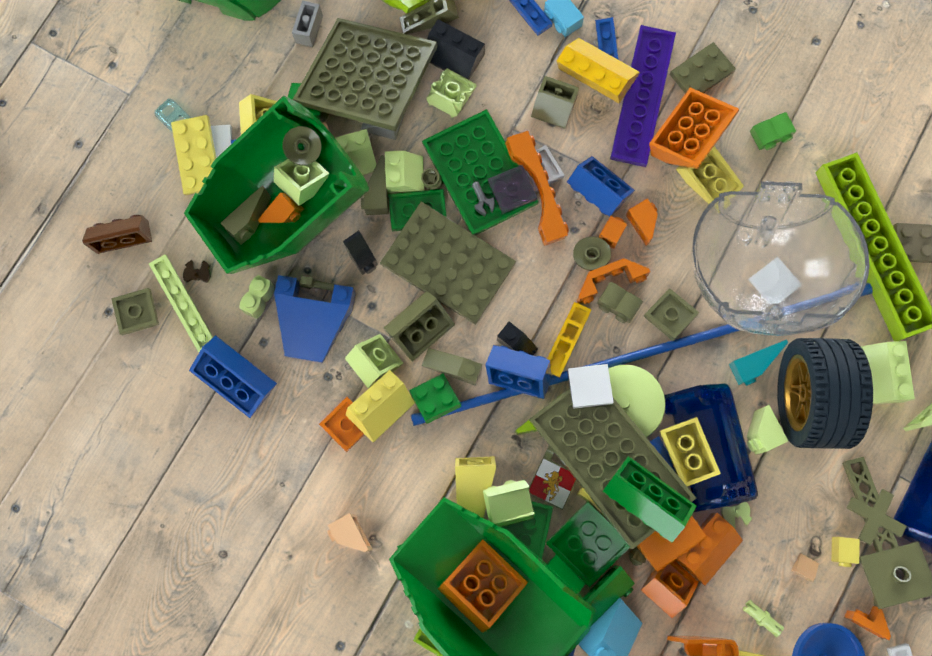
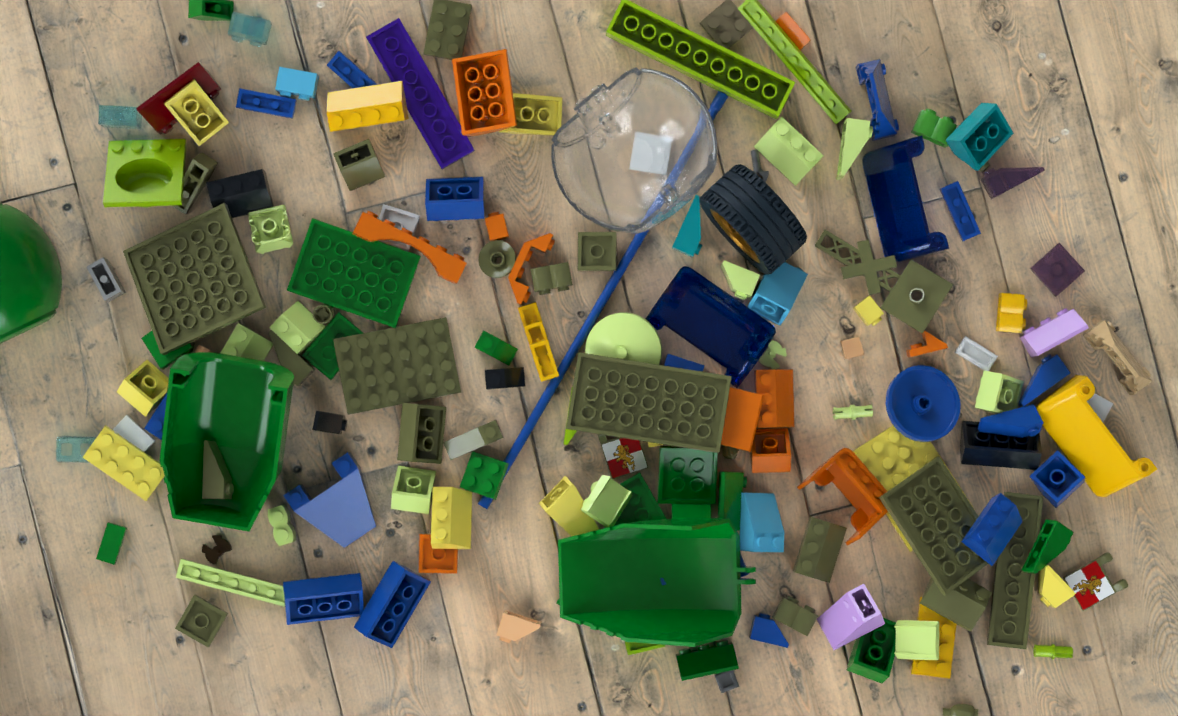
camera: 45 degrees left, 10 degrees up
(117, 234) = (129, 577): reddish brown slope -> none
(131, 201) = (111, 543): none -> green tile
(276, 429) = (392, 604): none -> blue slope
(281, 210) = (238, 444): orange slope -> none
(299, 181) = (228, 408): yellowish green slope -> none
(304, 136) = (218, 383): olive dish -> none
(309, 282) = (316, 473): olive bar -> none
(482, 200) = (376, 294): flat silver bar -> none
(482, 586) = (641, 573): orange slope -> none
(512, 189) = (392, 266): clear purple plate -> none
(518, 371) = (526, 400): blue brick -> none
(531, 314) = (496, 348): none -> green slope
(590, 386) = (587, 364): white tile -> none
(643, 219) = (511, 195): orange slope -> none
(650, 499) = (699, 408): green slope -> none
(690, 452) = (699, 345): light yellow slope -> none
(772, 131) = (545, 32): bright green brick -> none
(784, 470) = (777, 293): none -> medium azure slope

